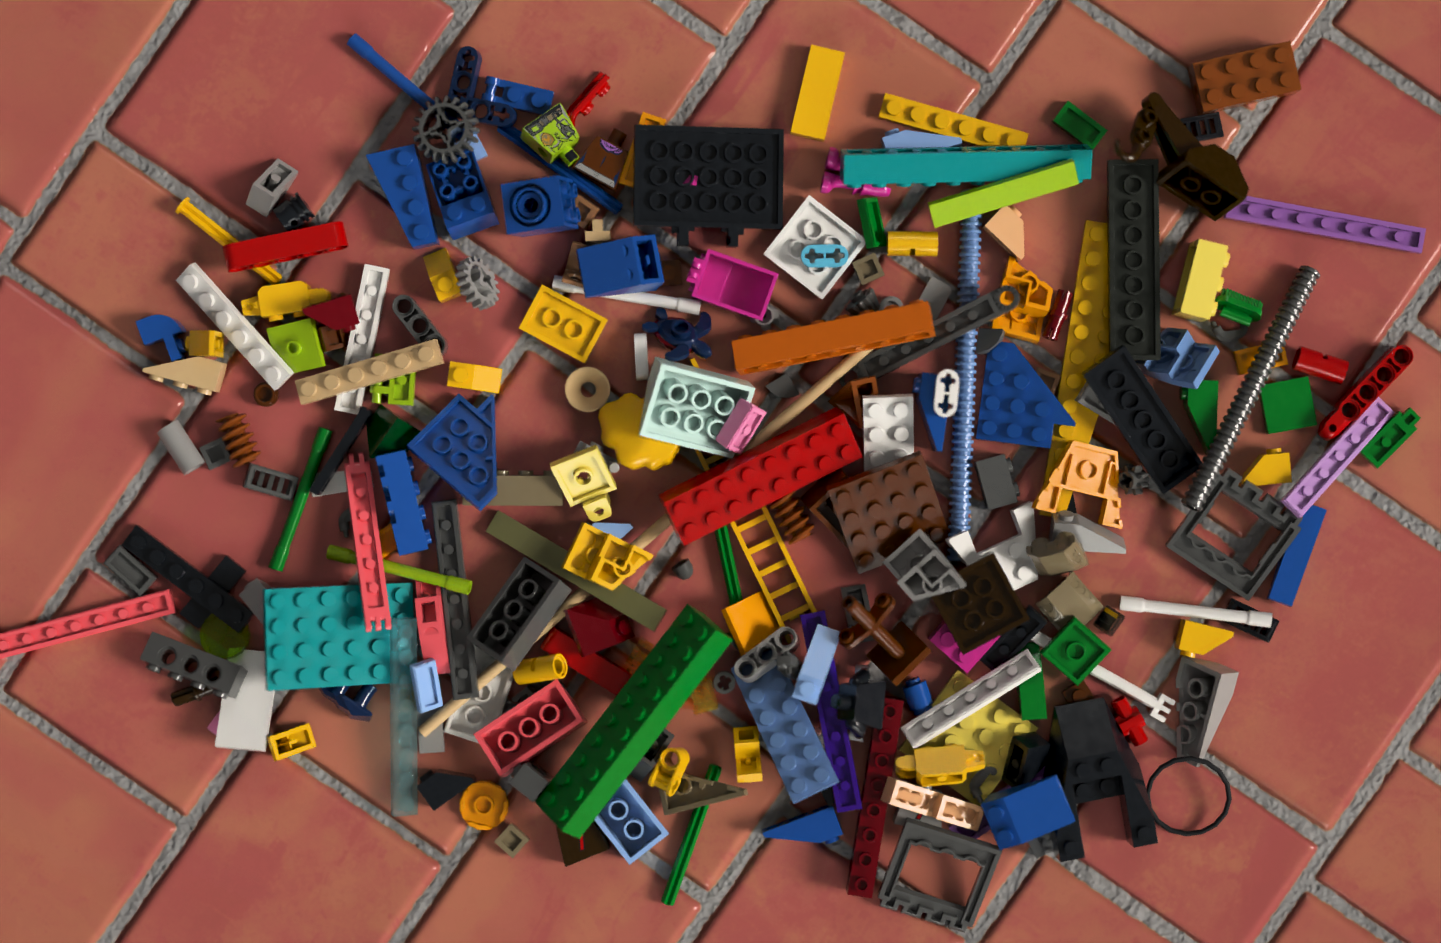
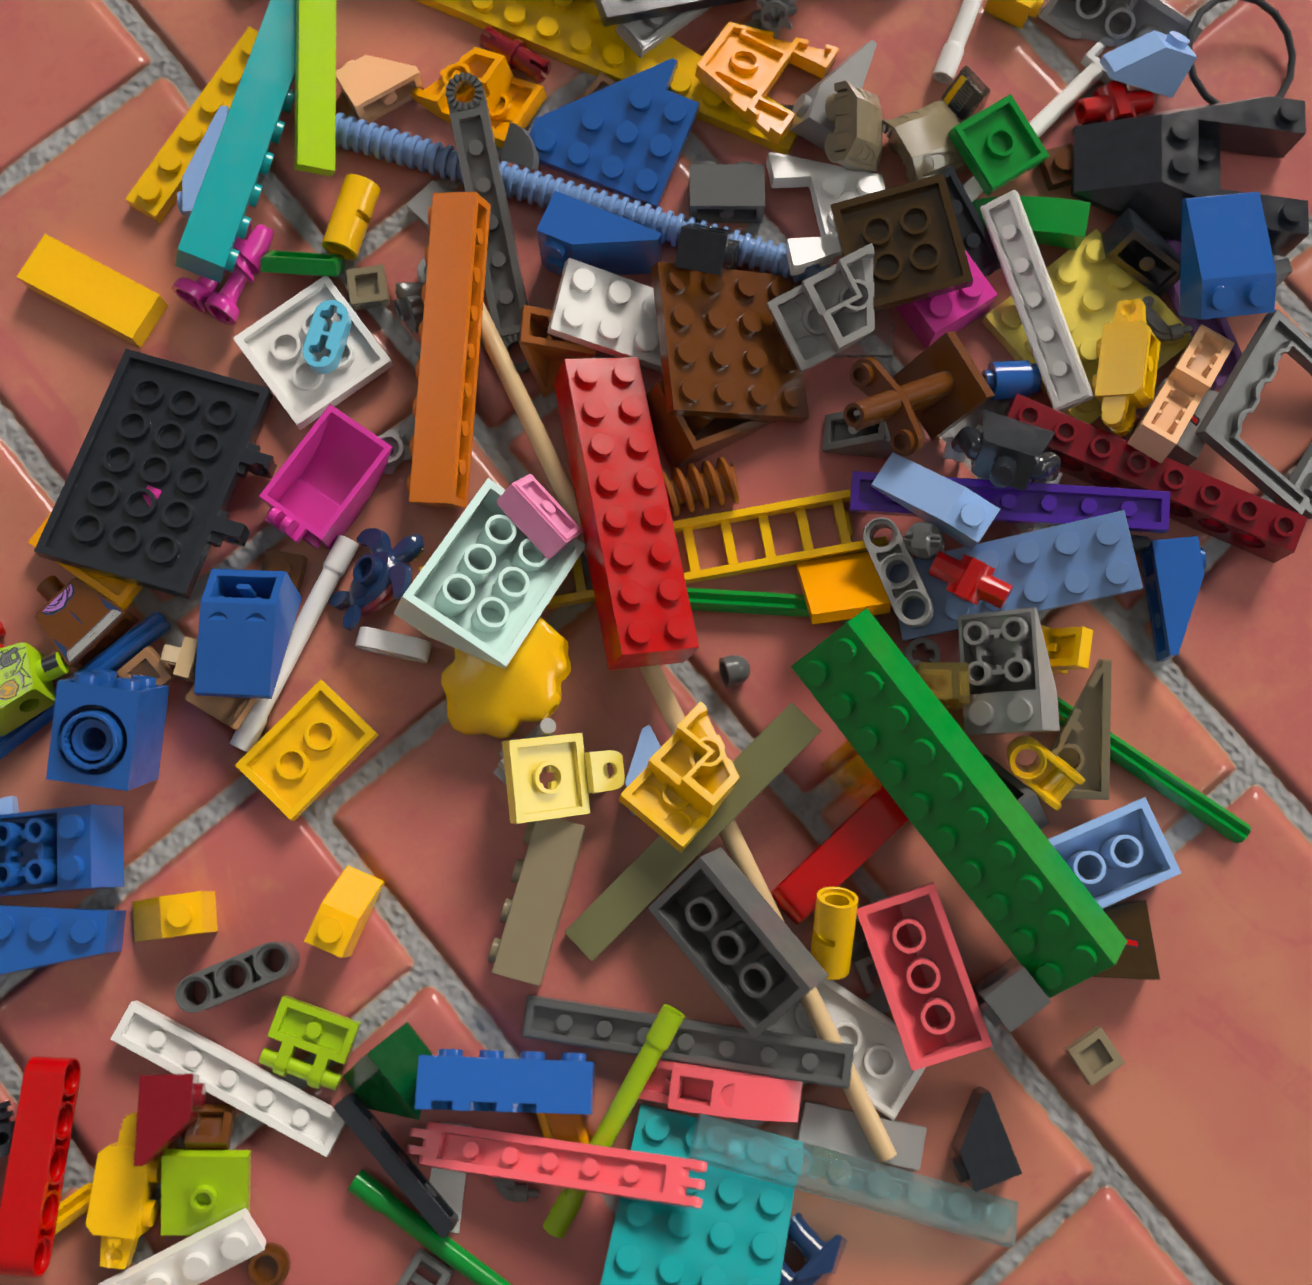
camera: 80 degrees left, 10 degrees down
(369, 372) = (281, 1081): tan plate -> none
(426, 685) = (813, 1128): light blue tile -> none
(462, 449) = (450, 961): blue wing -> none
(477, 283) = (196, 864): light grey gear -> none
(484, 805) = (1027, 1086): light orange tile -> none
(580, 377) = (399, 728): tan piece -> none
(597, 626) = (788, 821): dark red slope -> none
(720, 735) = (1008, 674): none -> light grey slope
(772, 699) = (970, 579): none -> red axle
(783, 387) = (503, 452): dark grey tile -> none
(942, 482) = (706, 249): none -> black brick
(952, 393) = (577, 201): white beam -> none
(1160, 736) = (1151, 62): none -> light blue slope

